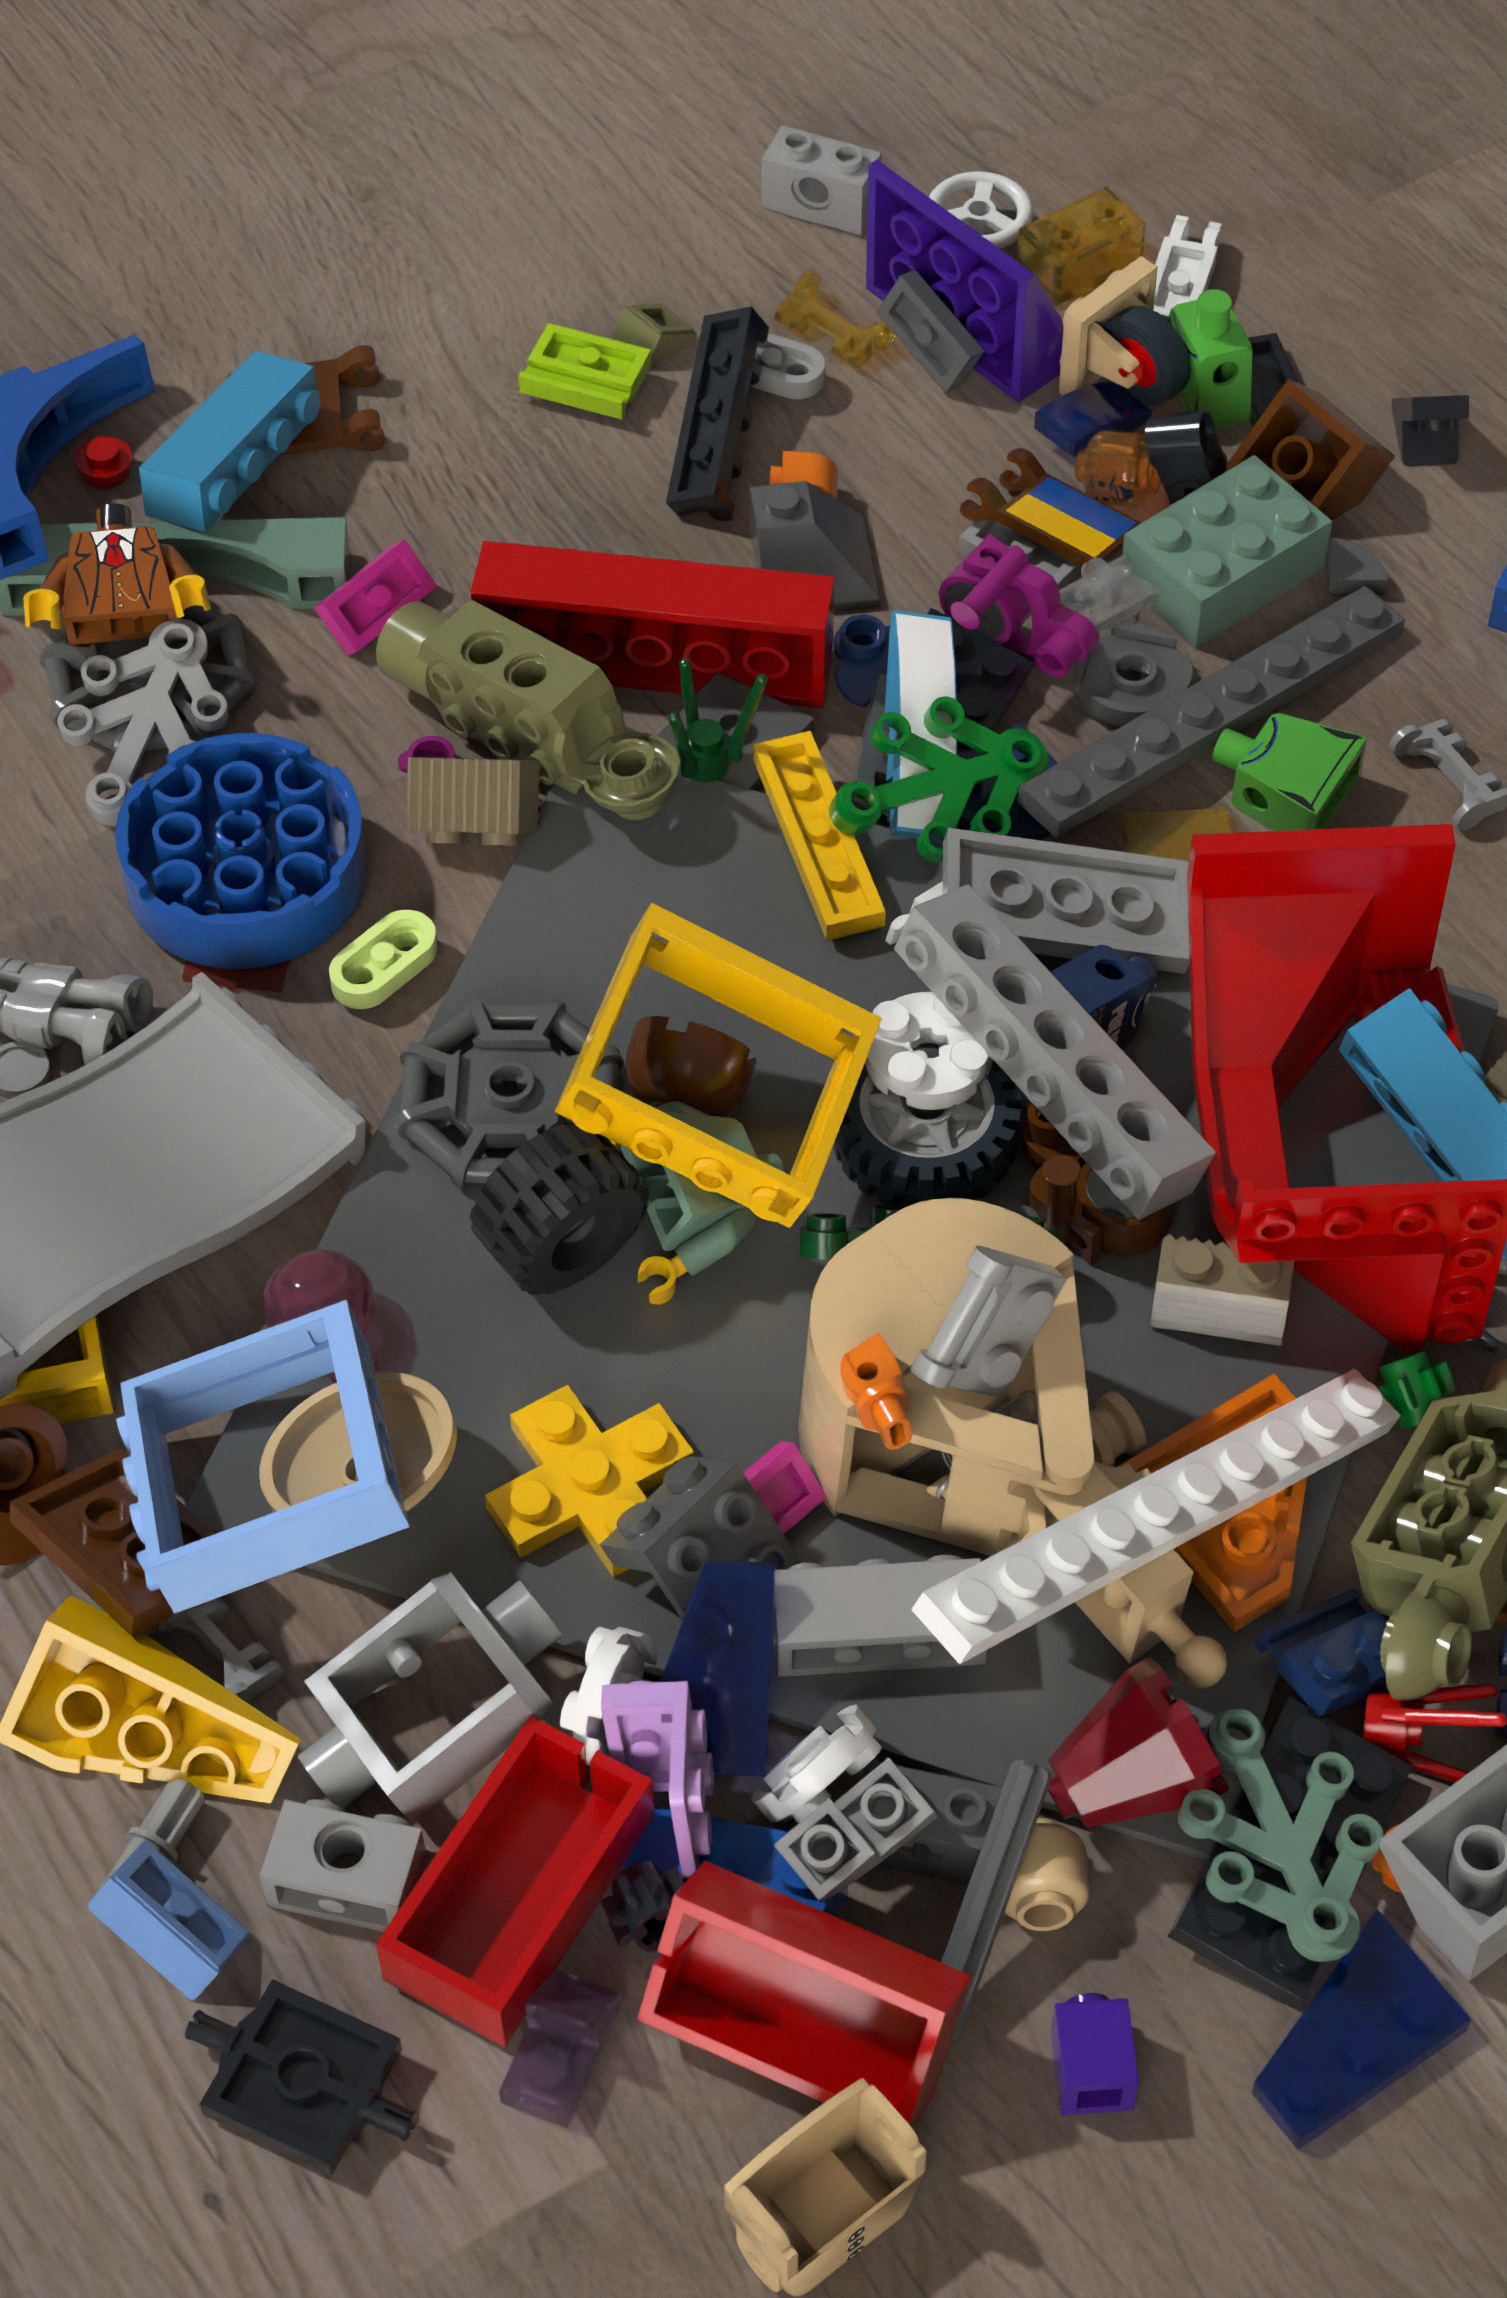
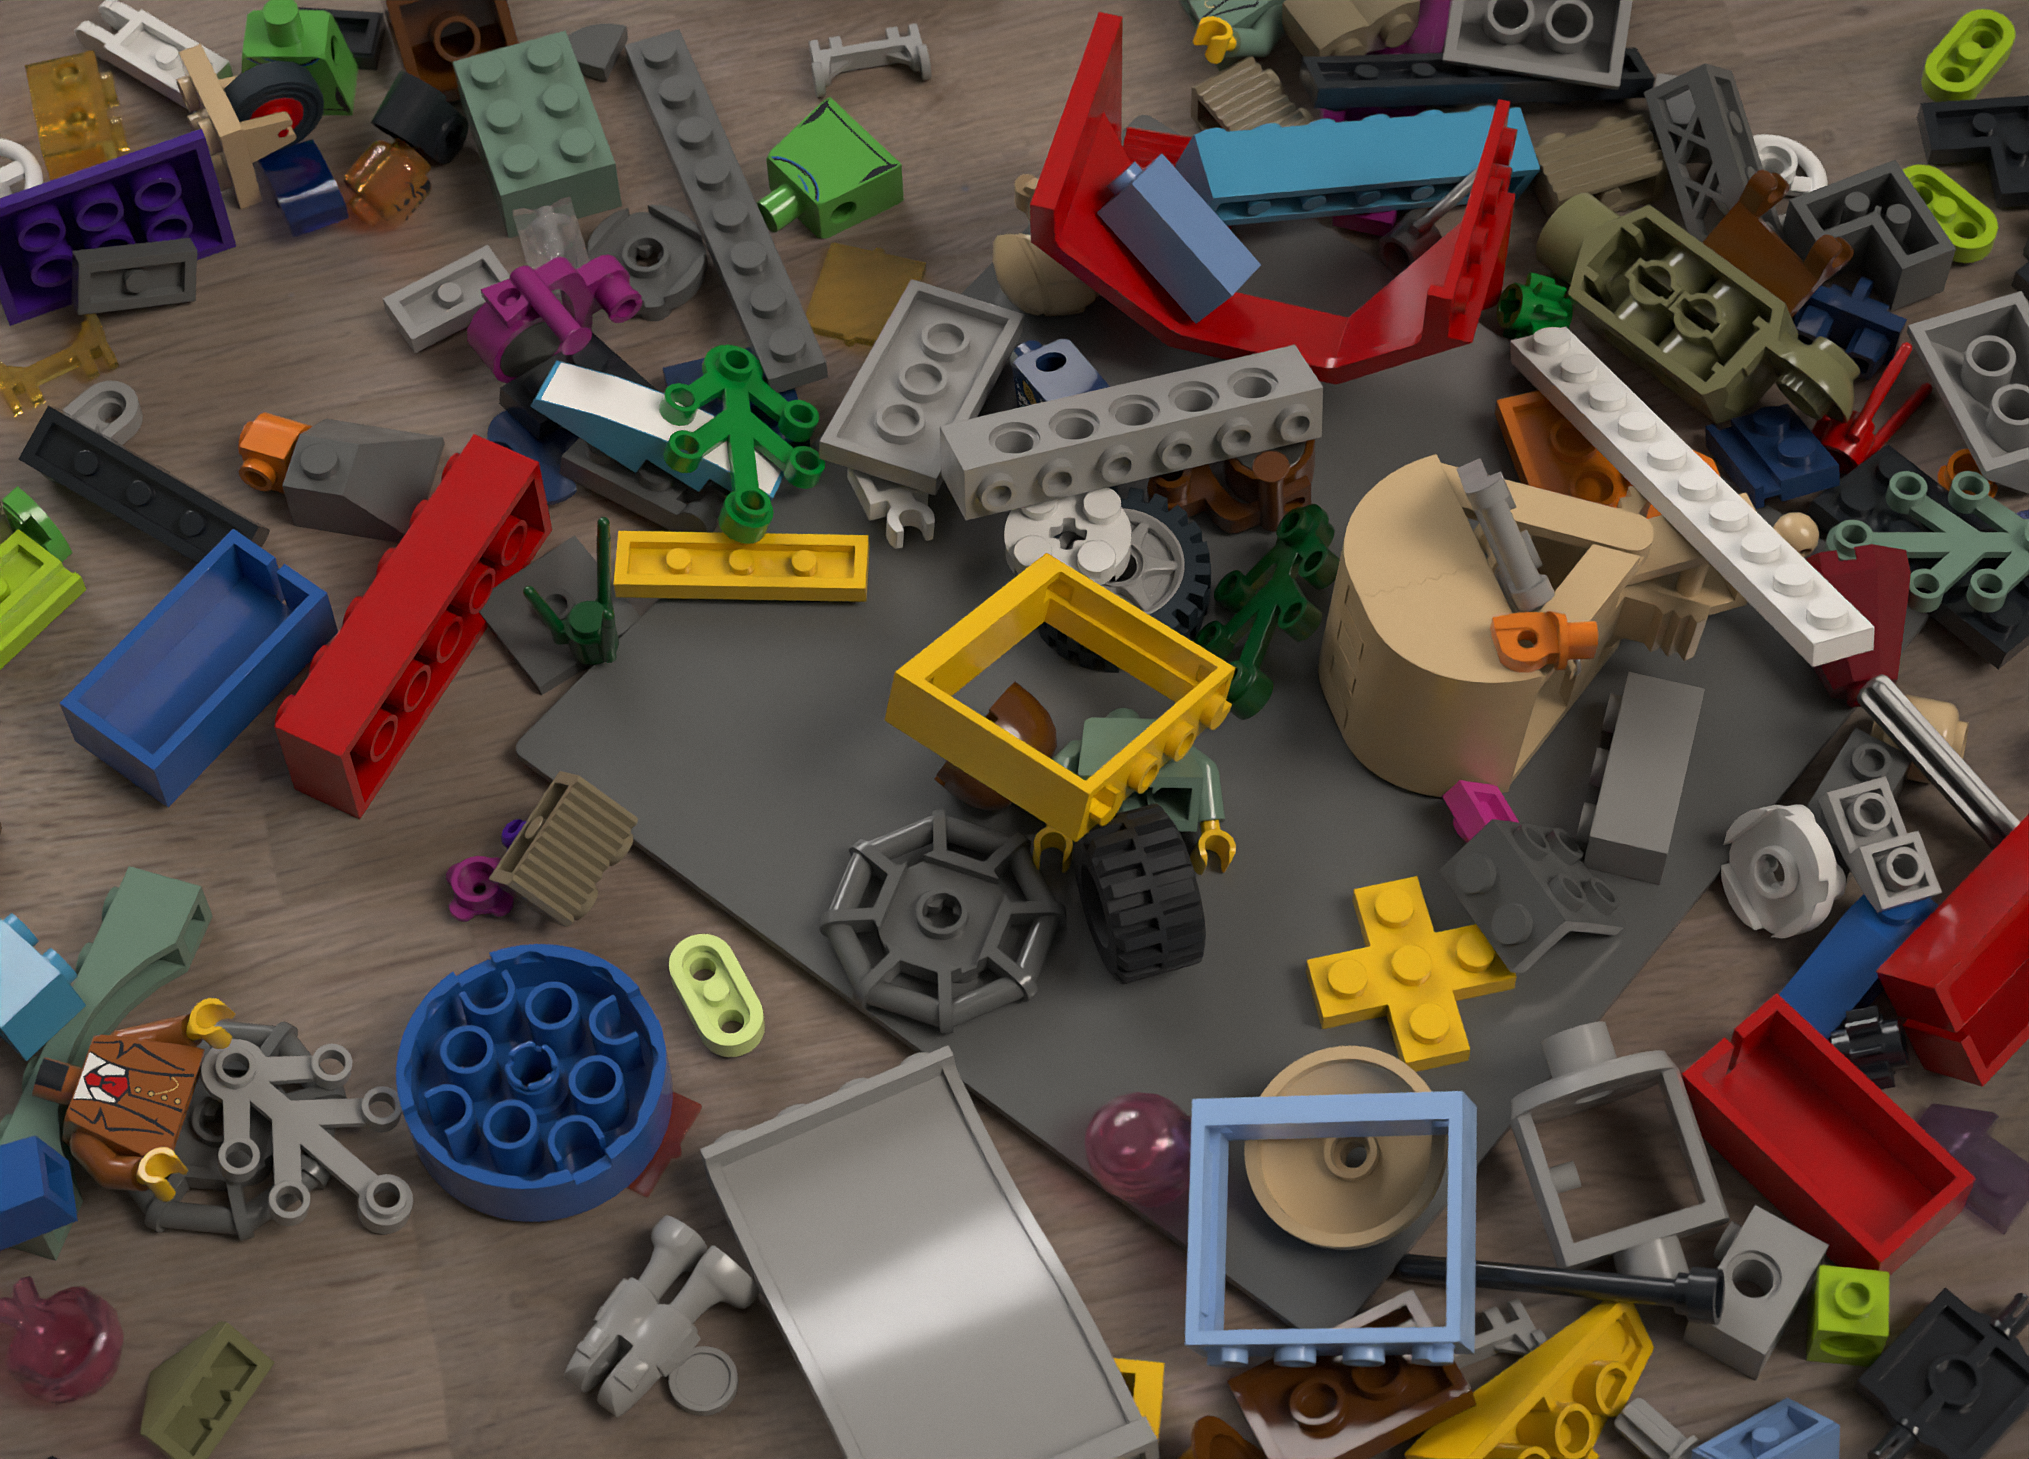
camera: 70 degrees left, 5 degrees up
(293, 1787) = (1693, 1294): none -> black piece
(339, 1952) = (1847, 1316): none -> lime brick
(368, 599) = (233, 877): dark pink plate -> none
(528, 703) = (479, 760): olive brick -> none
(554, 493) = (199, 667): none -> blue piece
(610, 1658) = (1663, 1009): white plate -> none
(666, 1740) = (1774, 960): lavender bracket -> none
(667, 363) = (28, 517): none -> bright green tile
(728, 1661) = (1670, 922): clear blue wing -> none
(1050, 512) = (420, 254): flag -> none
(1213, 1294) = (1396, 414): dark tan brick -> none
(1275, 1004) = (1177, 236): none -> medium blue brick

